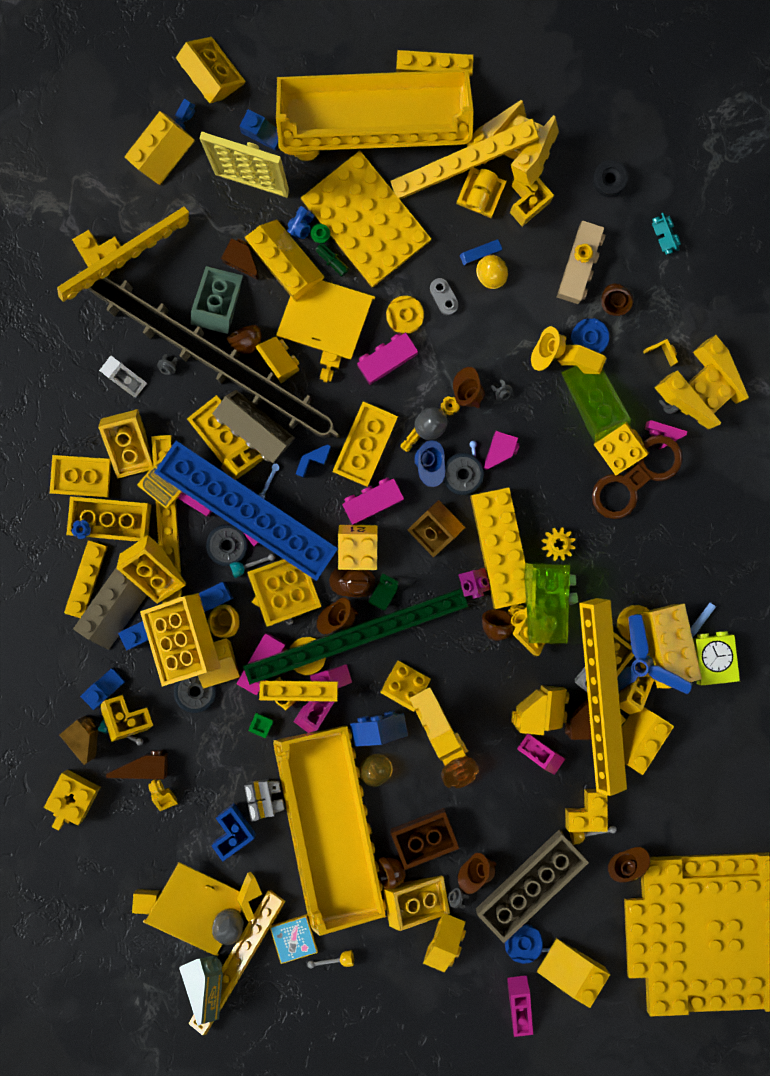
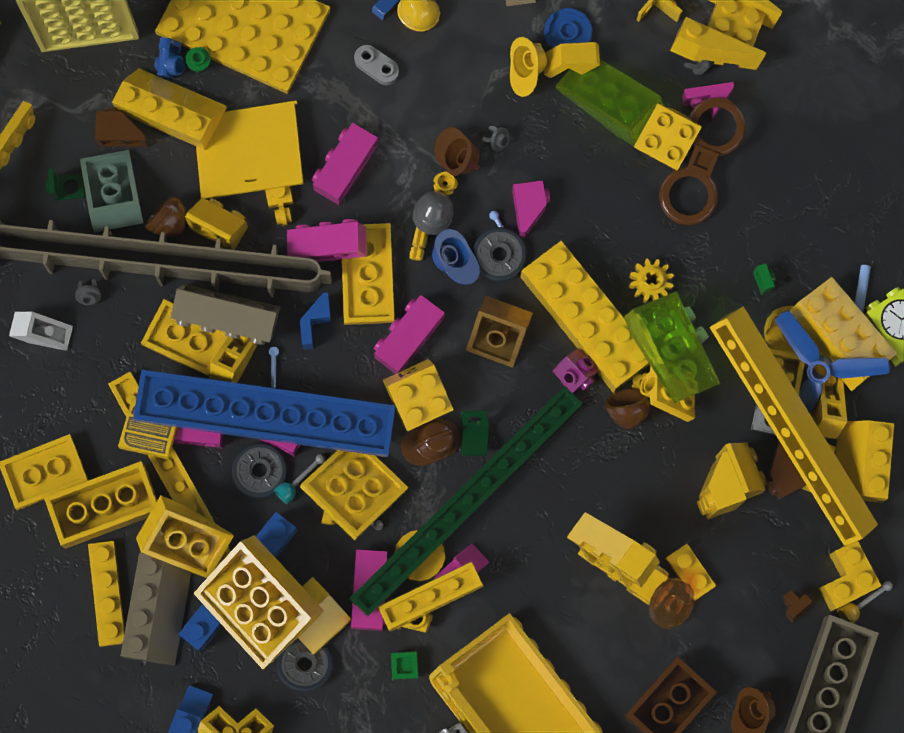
camera: 30 degrees left, 10 degrees down
(81, 534) = (83, 528): blue plate -> none
(126, 443) = (82, 407): yellow slope -> none
(180, 277) = (55, 186): none -> dark green bracket
(223, 621) = (300, 559): yellow hat -> none
(312, 715) = (461, 620): dark pink arch -> none
(332, 259) = (225, 83): dark green axle -> none
(336, 616) = (433, 488): reddish brown piece -> none
(347, 409) = (328, 241): none -> dark pink brick
(375, 770) = (569, 652): clear yellow hat -> none
(379, 729) = (548, 598): blue brick -> none
(404, 683) = (550, 530): yellow plate -> none
(405, 314) = (341, 105): yellow tile -> none
(484, 755) = (690, 570): none -> yellow plate
(541, 754) = (757, 535): dark pink arch -> none
(543, 814) = (796, 606): none -> reddish brown tile
(637, 580) = (764, 278): none -> green plate

